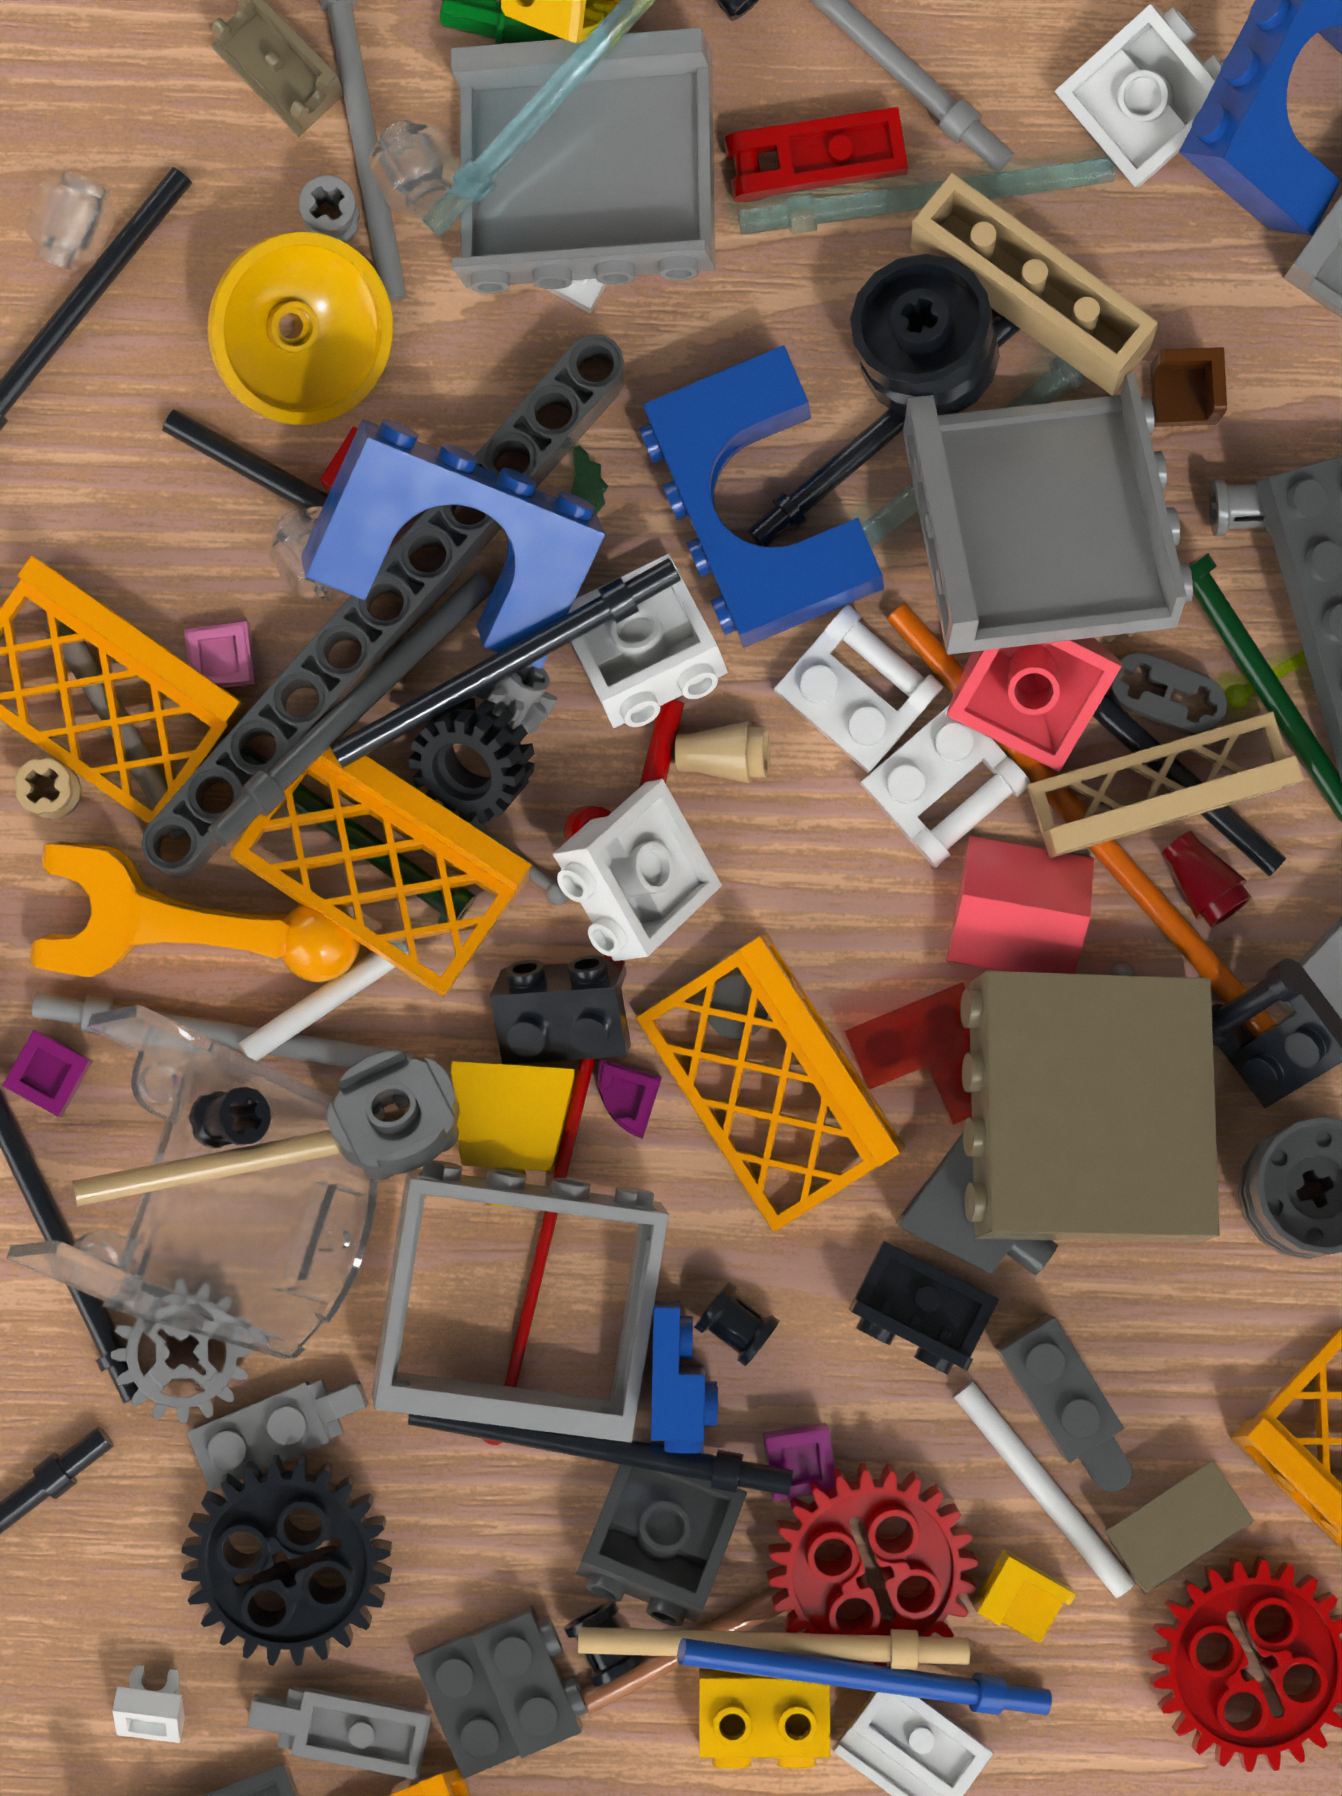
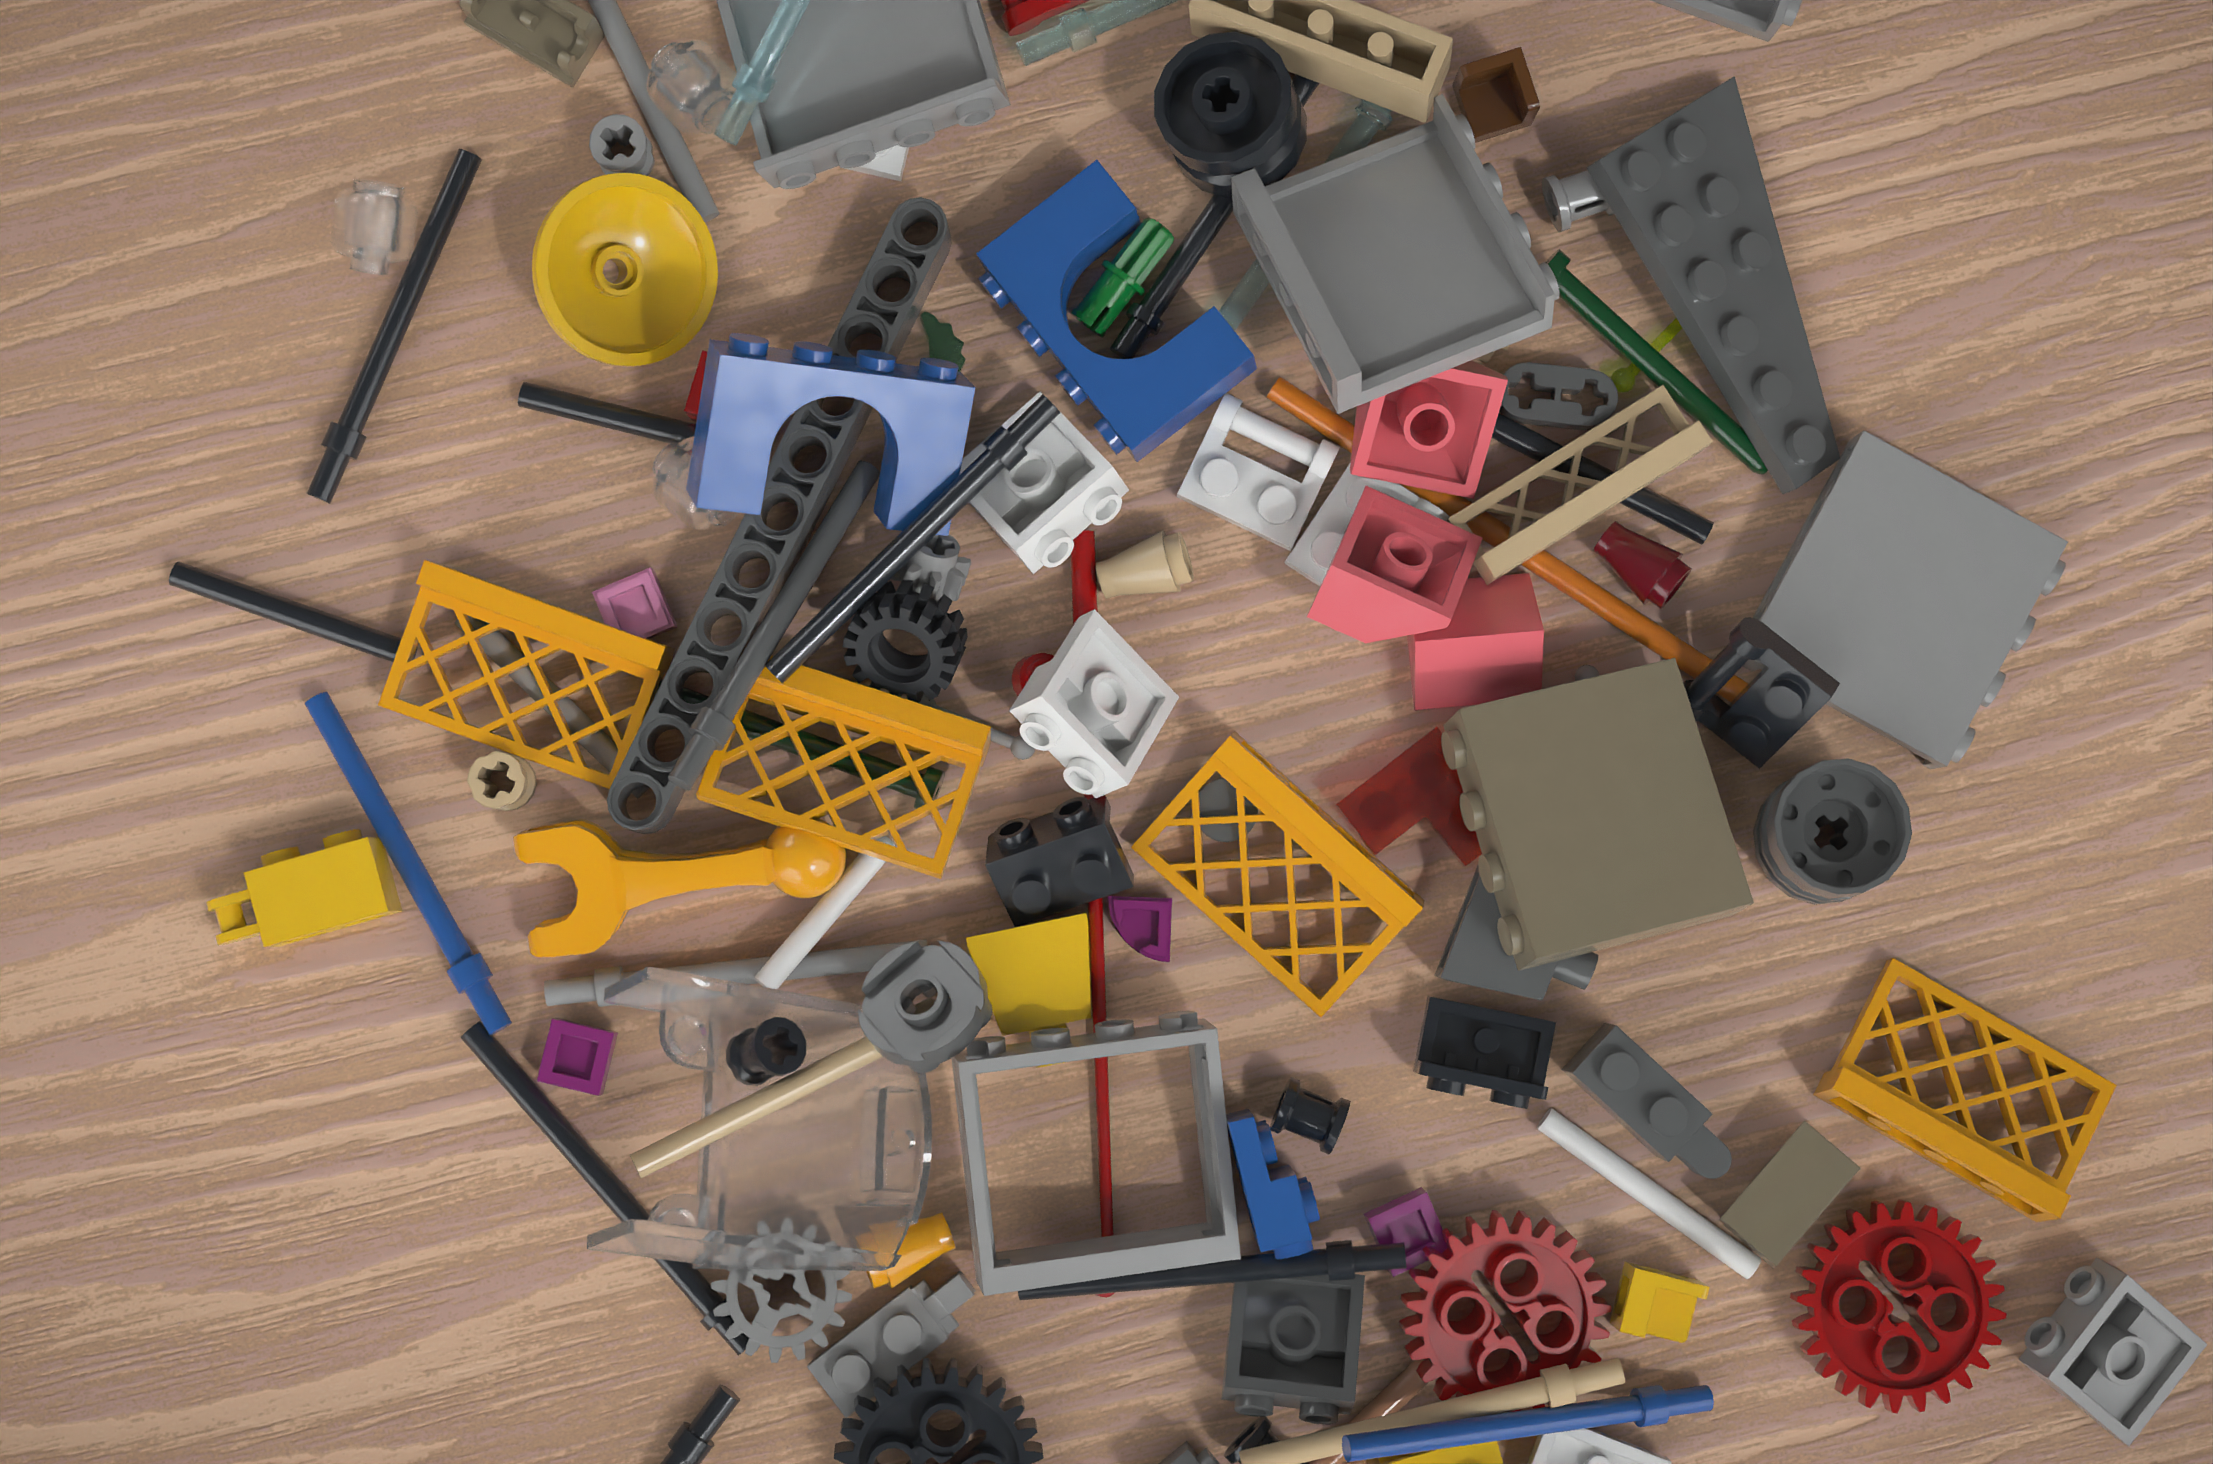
camera: 15 degrees left, 0 degrees up
(327, 1346) = (920, 1246): none -> light orange cone
(780, 464) = (1123, 276): none -> green axle
(961, 821) = (1394, 571): none -> coral slope

